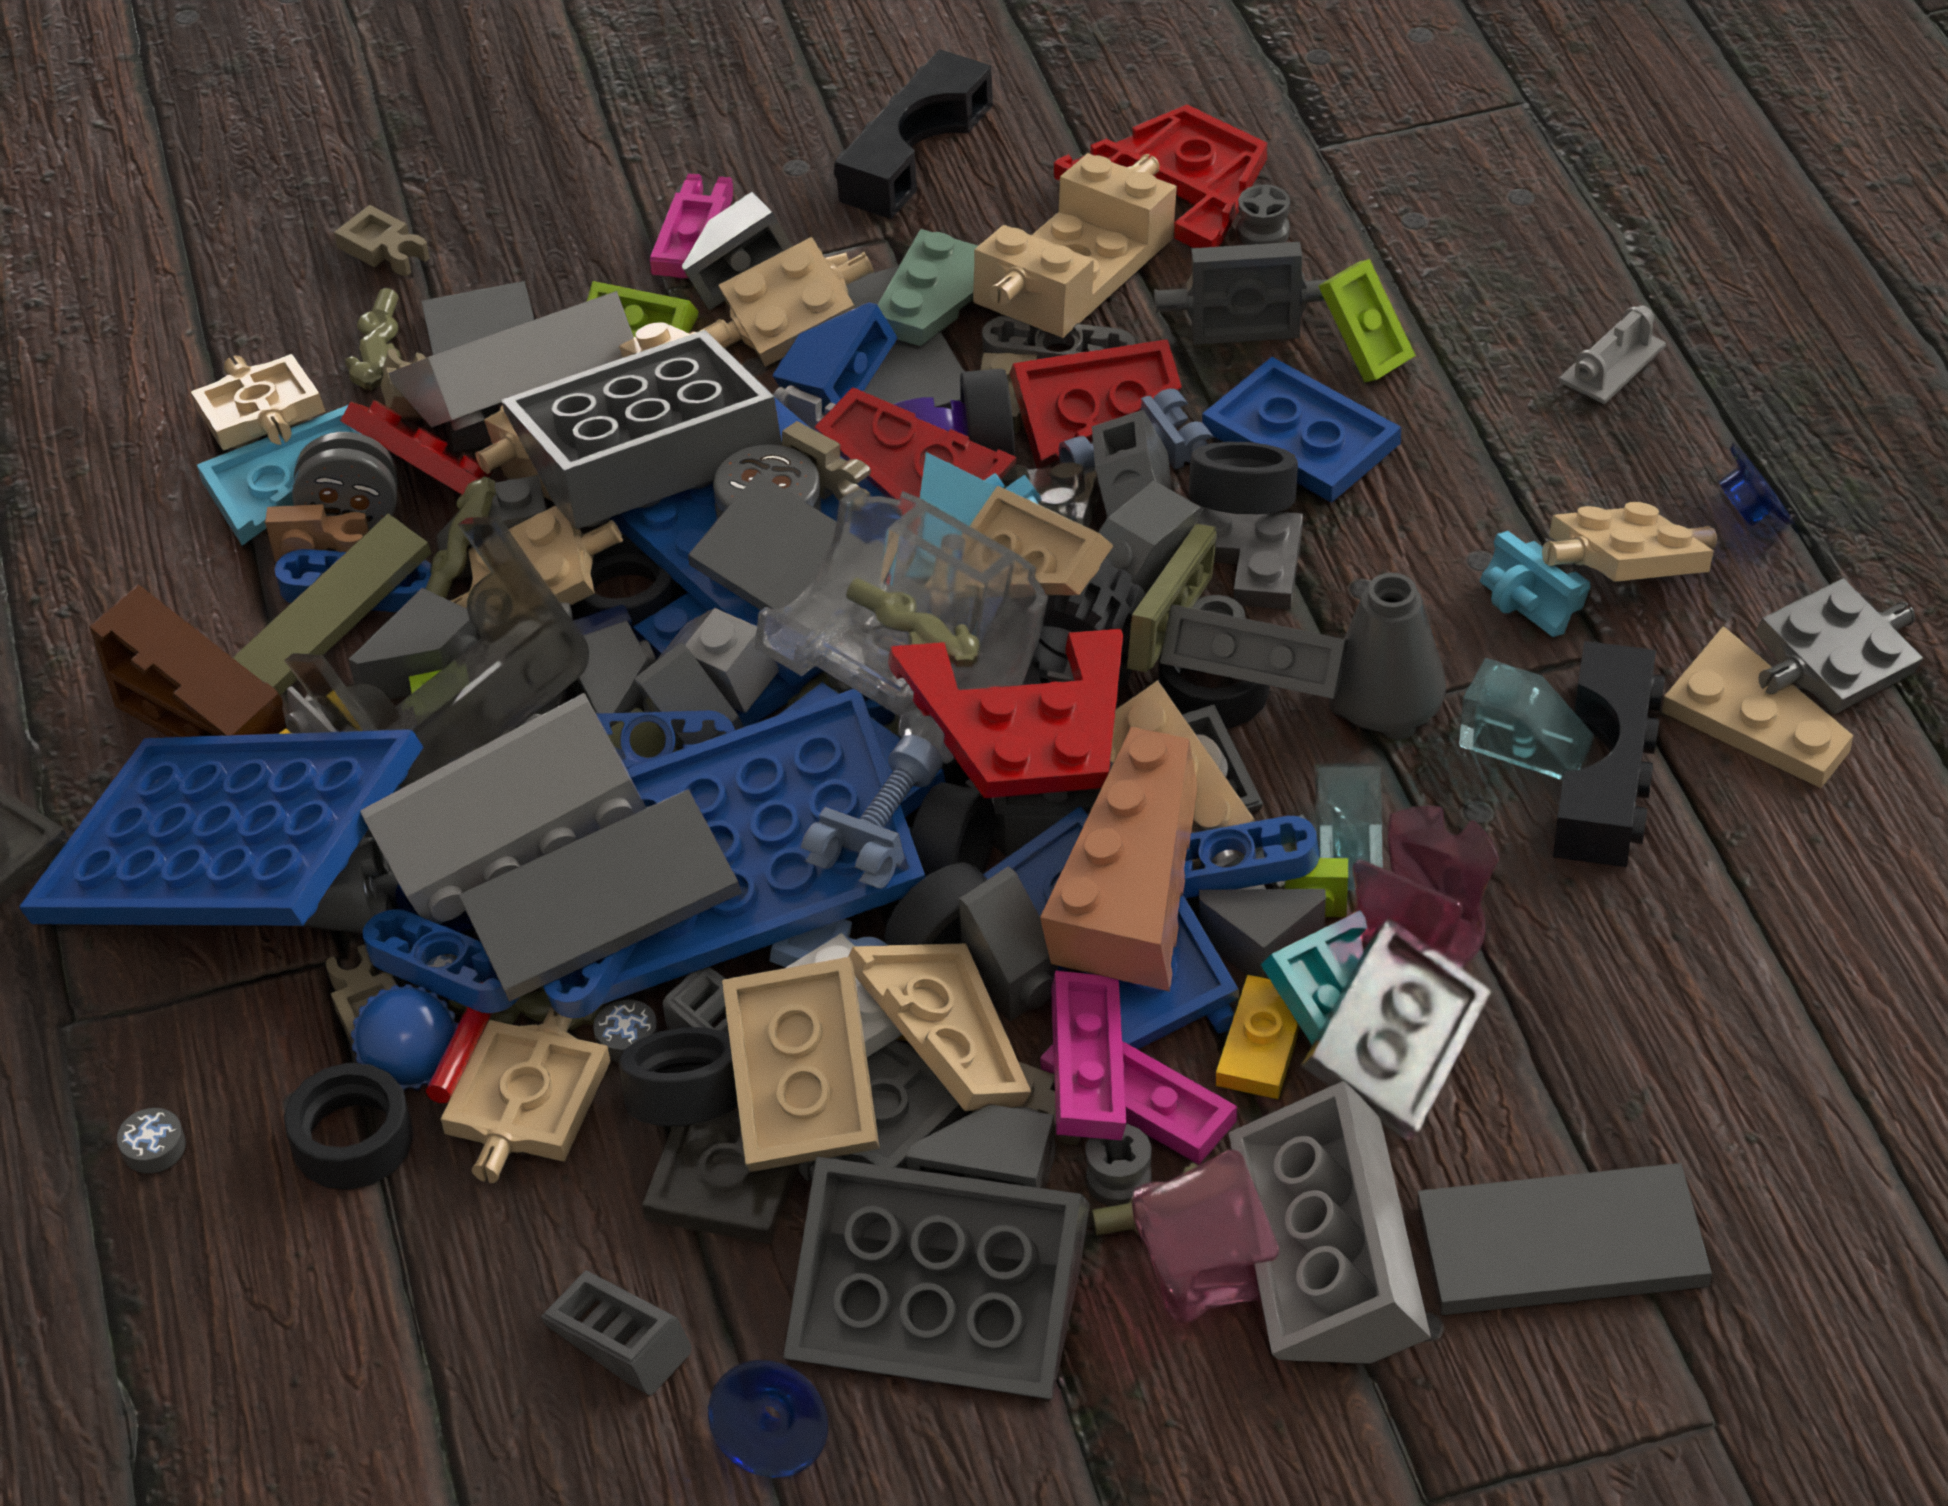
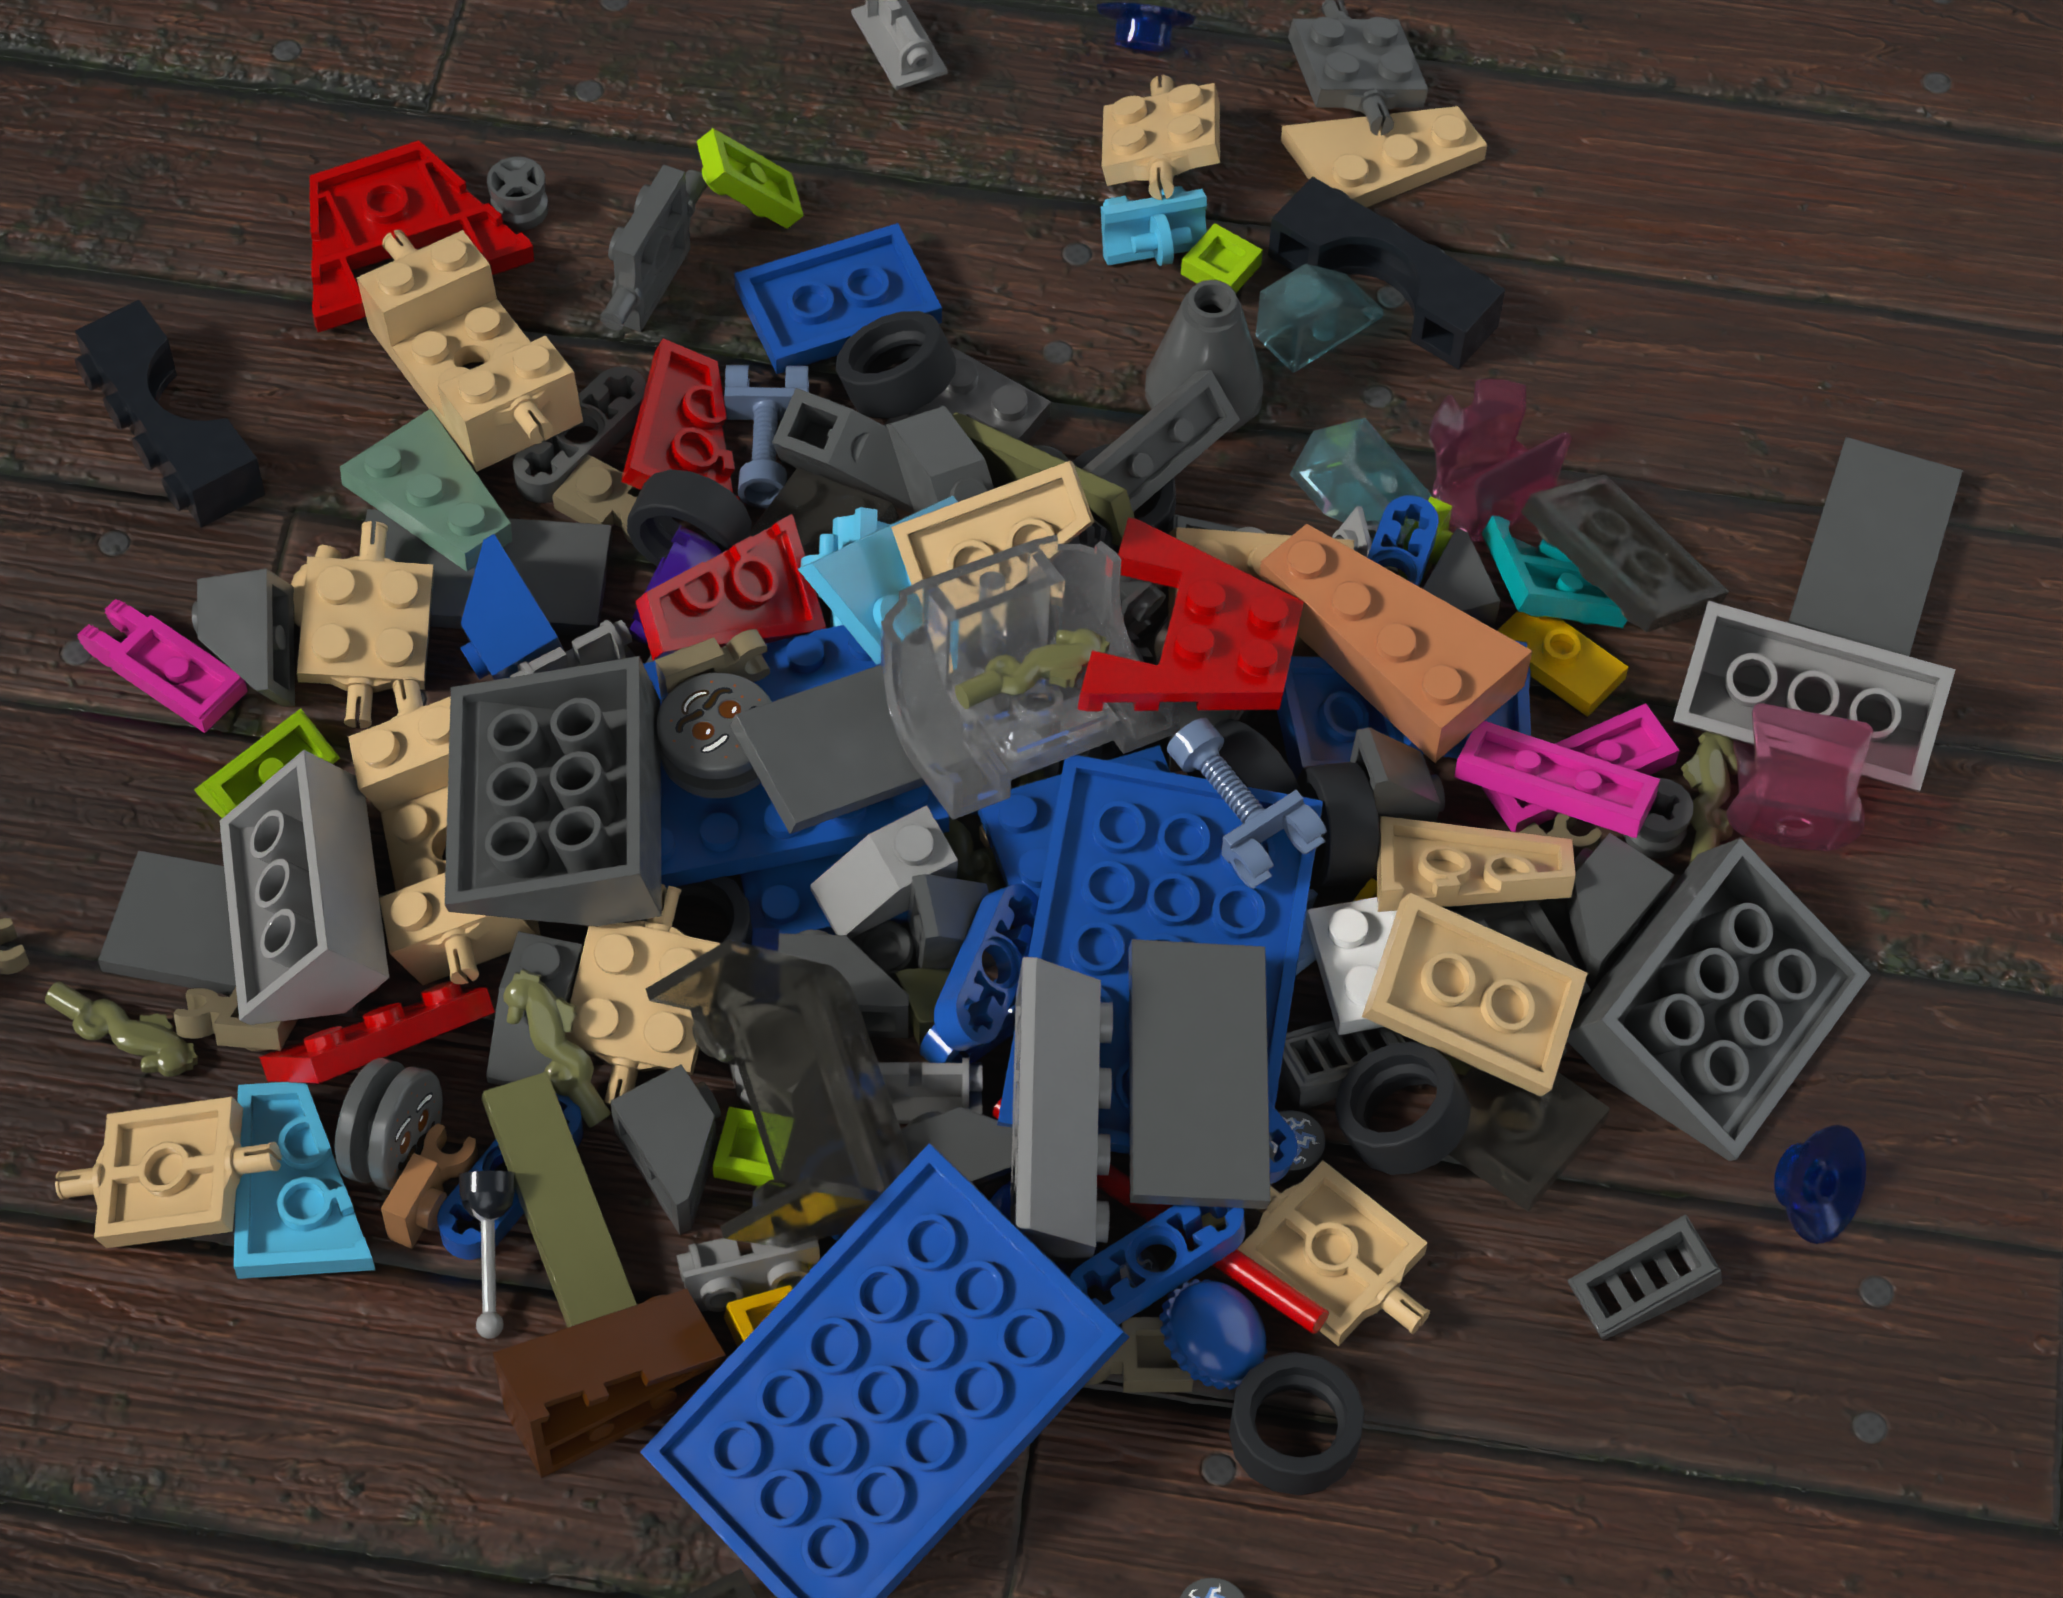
camera: 70 degrees left, 10 degrees up
(306, 559) = (486, 1198): none -> hinge
(1532, 642) = (1222, 258): none -> lime plate

